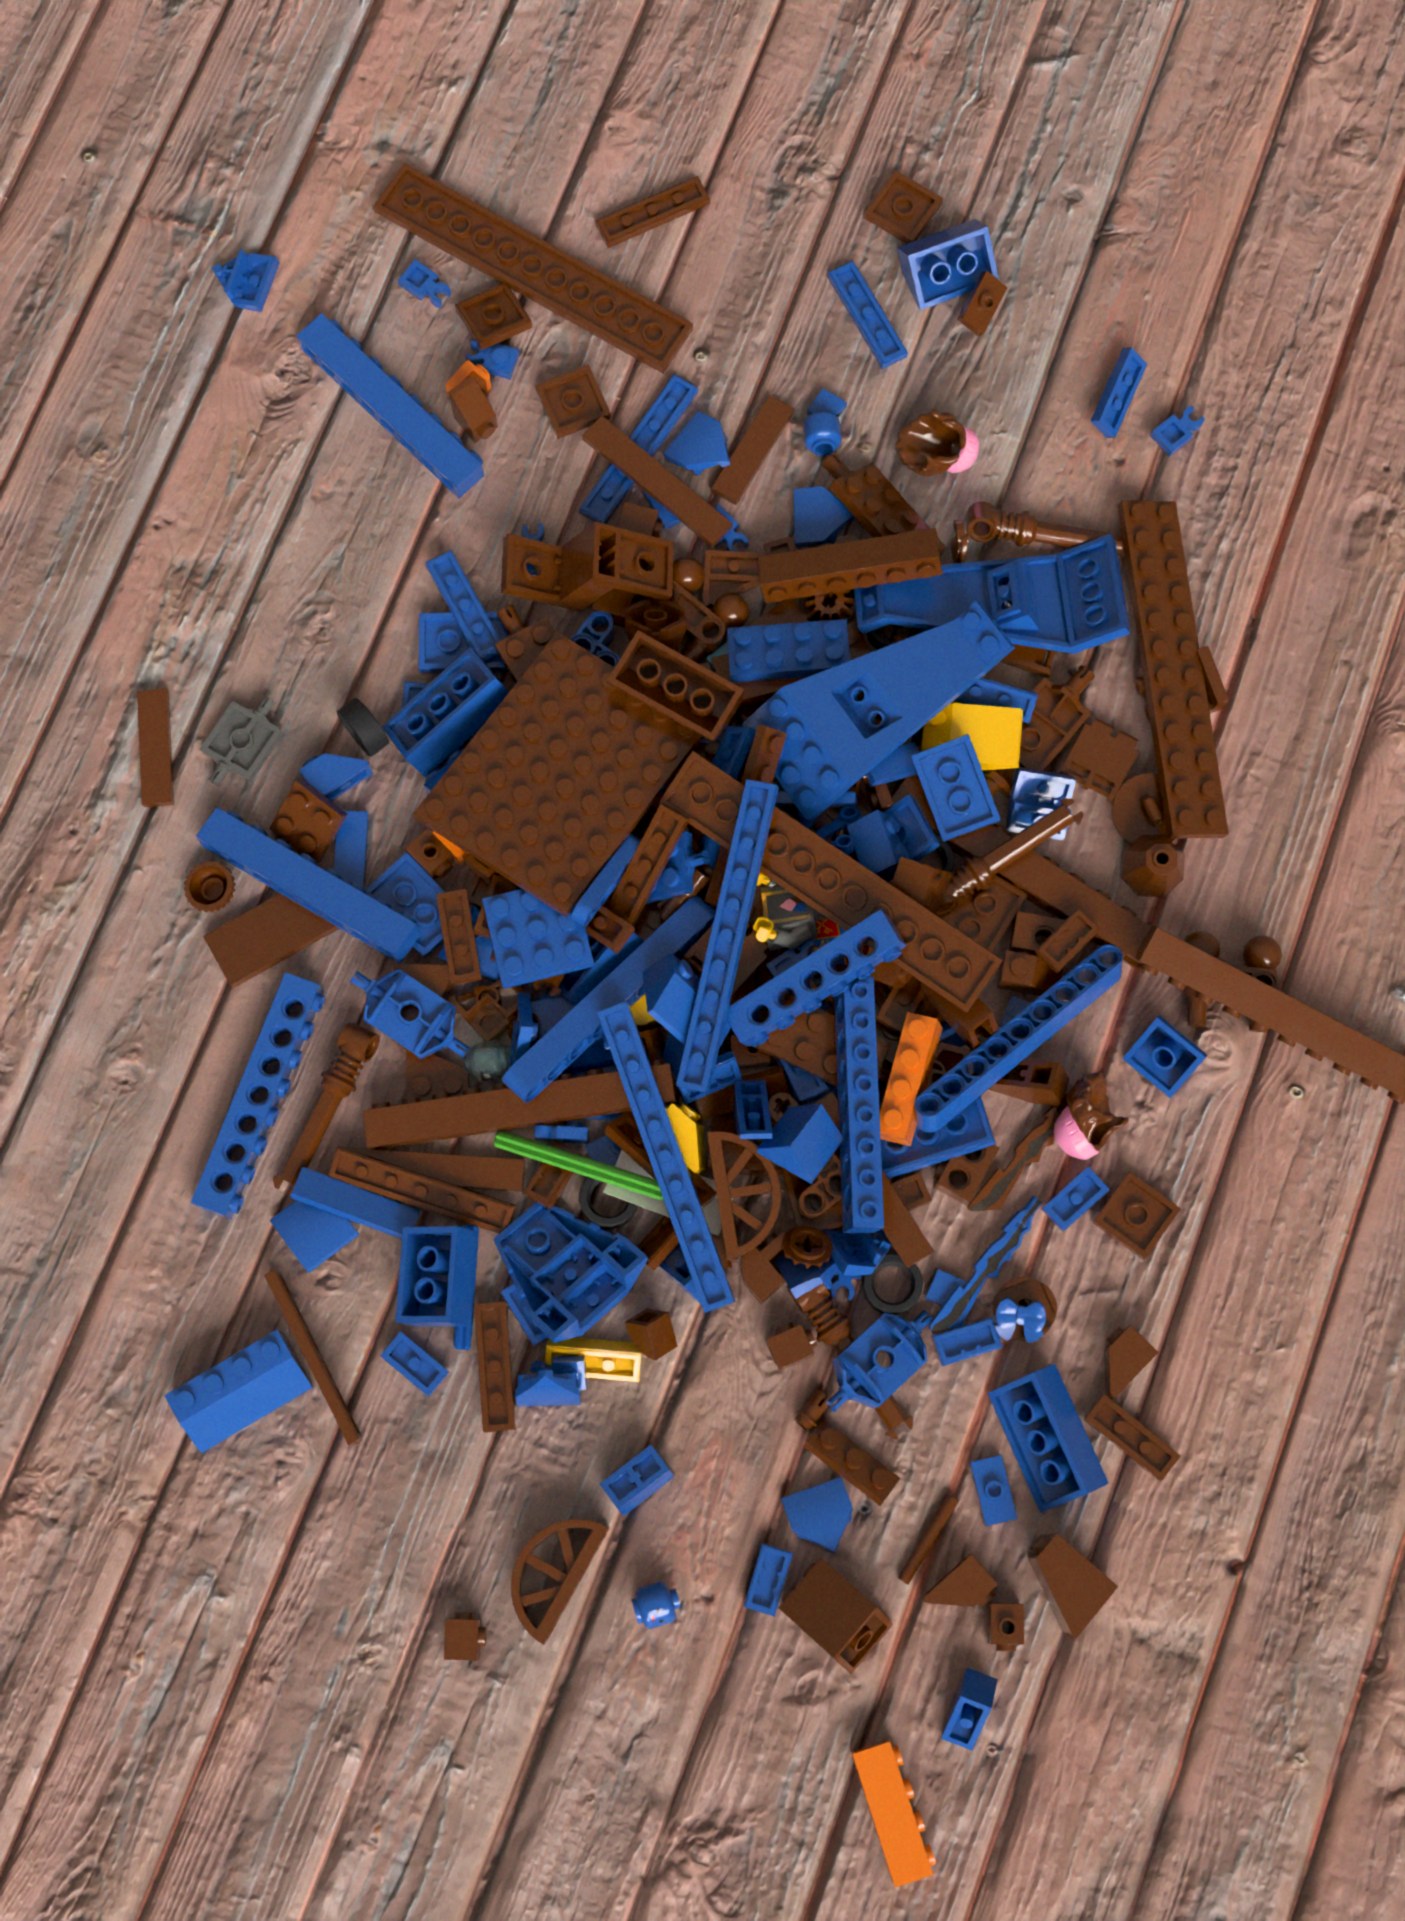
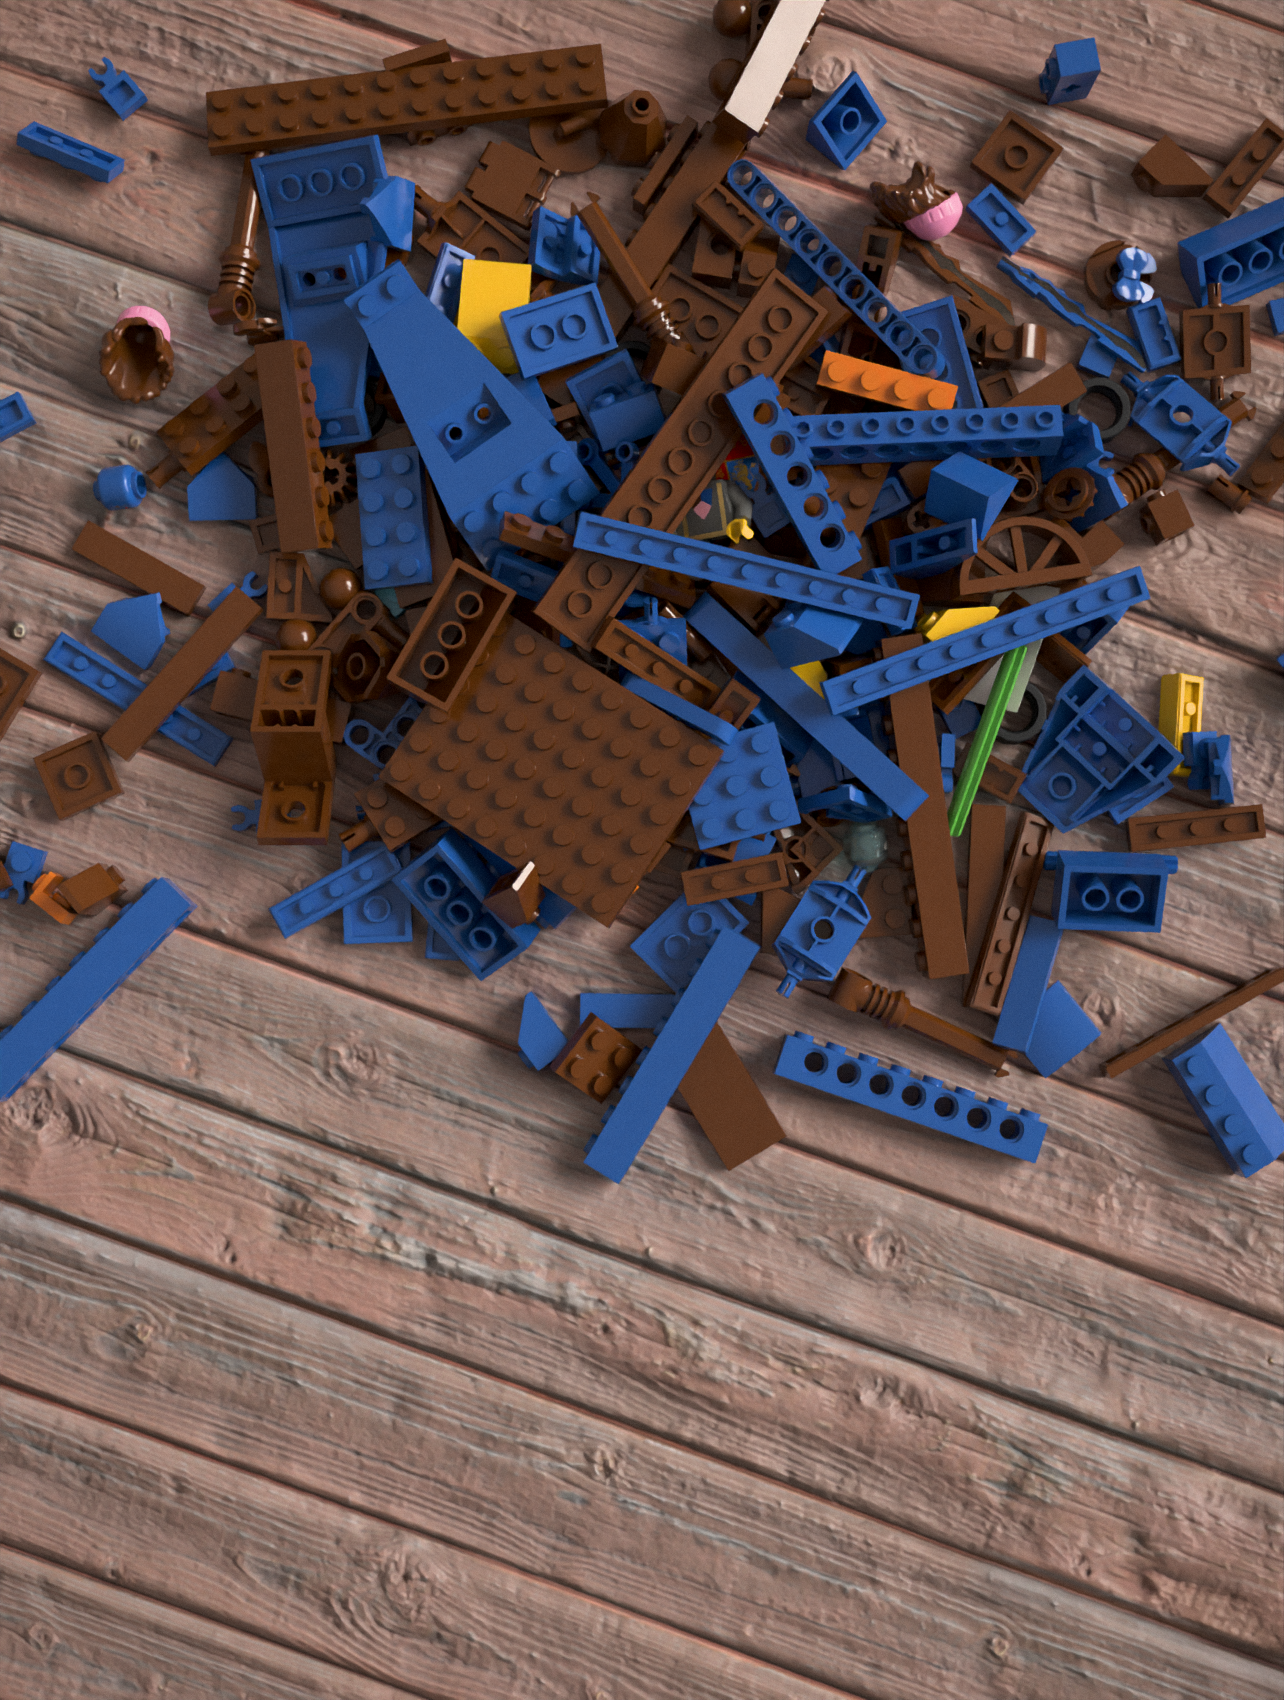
camera: 95 degrees left, 10 degrees up
(155, 748) = (505, 1240): reddish brown tile -> none
(209, 886) = (672, 1166): reddish brown hat -> none
(241, 741) = (498, 1141): dark grey plate -> none
(363, 727) = (485, 1000): black tyre -> none
(415, 1364) = (1195, 913): blue plate -> none
(431, 854) = (634, 918): reddish brown brick -> none
(446, 744) = (516, 896): none -> reddish brown slope
(652, 1333) = (1157, 662): reddish brown brick -> none
(827, 402) = (81, 484): blue tile -> none
(951, 1203) = (1018, 346): none -> reddish brown brick
(959, 1398) = (1215, 341): none -> reddish brown plate
(1063, 648) = (391, 212): none -> blue slope
(1120, 891) = (664, 164): none -> reddish brown plate
(1217, 1261) = (1070, 71): none -> blue brick

